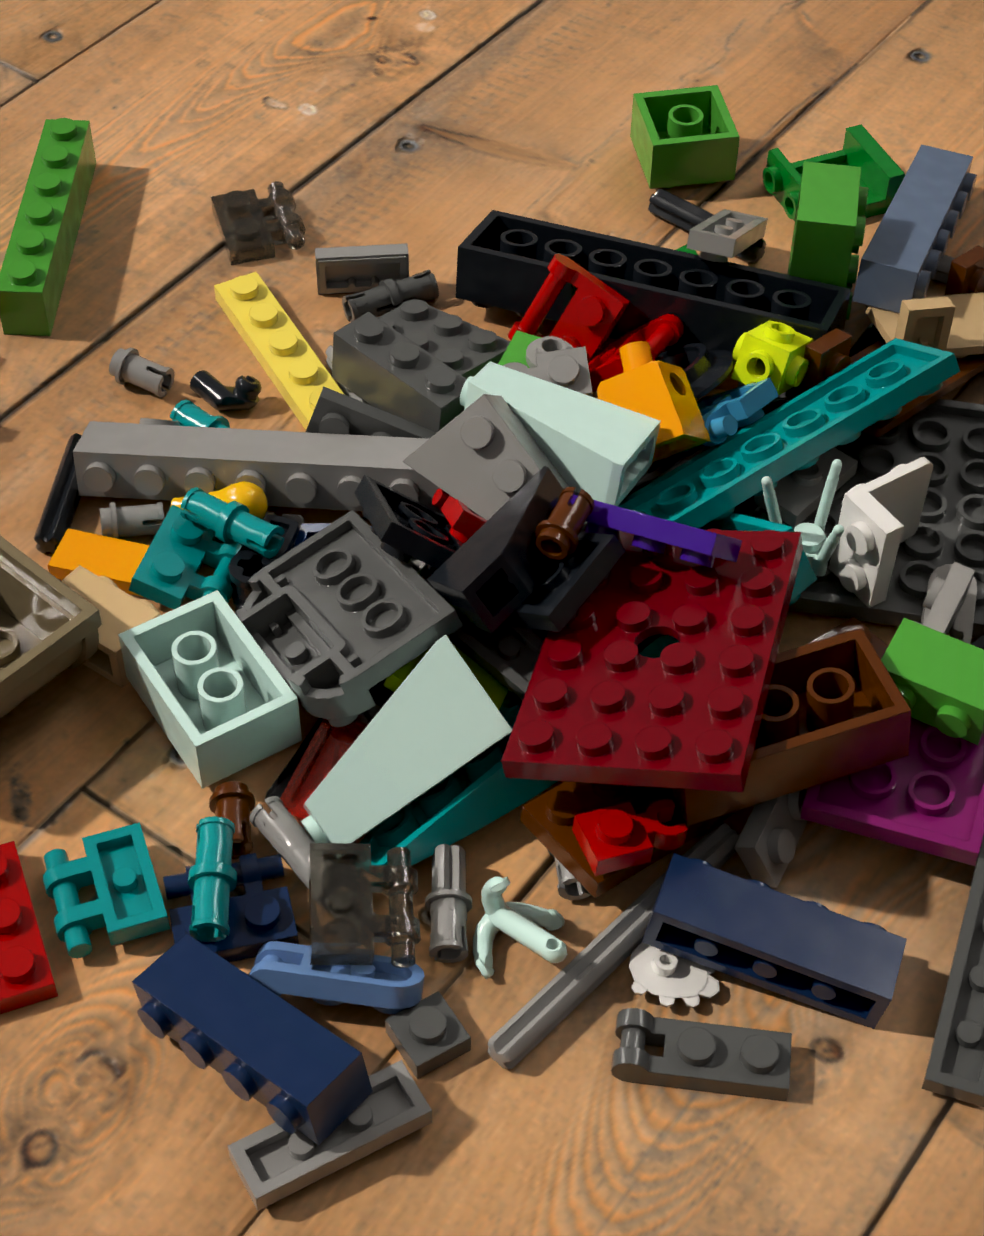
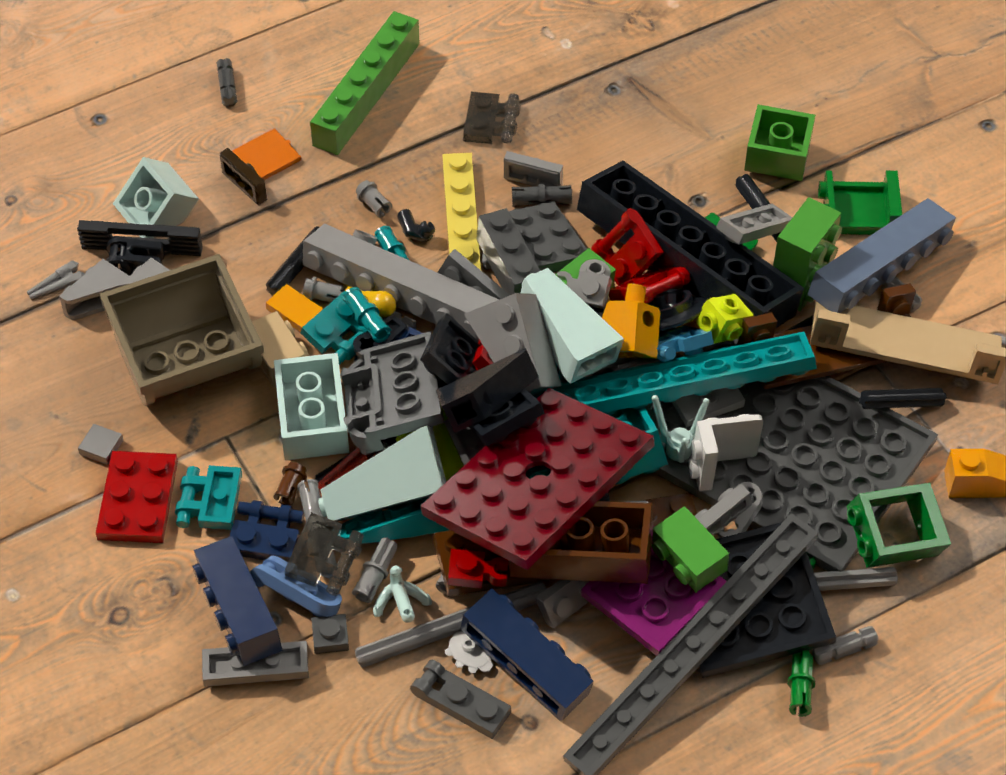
camera: 25 degrees right, 5 degrees up
(212, 879) = (258, 512): teal pin -> none
(559, 533) = (518, 386): reddish brown pin -> none
(655, 533) = (570, 406): dark purple plate -> none

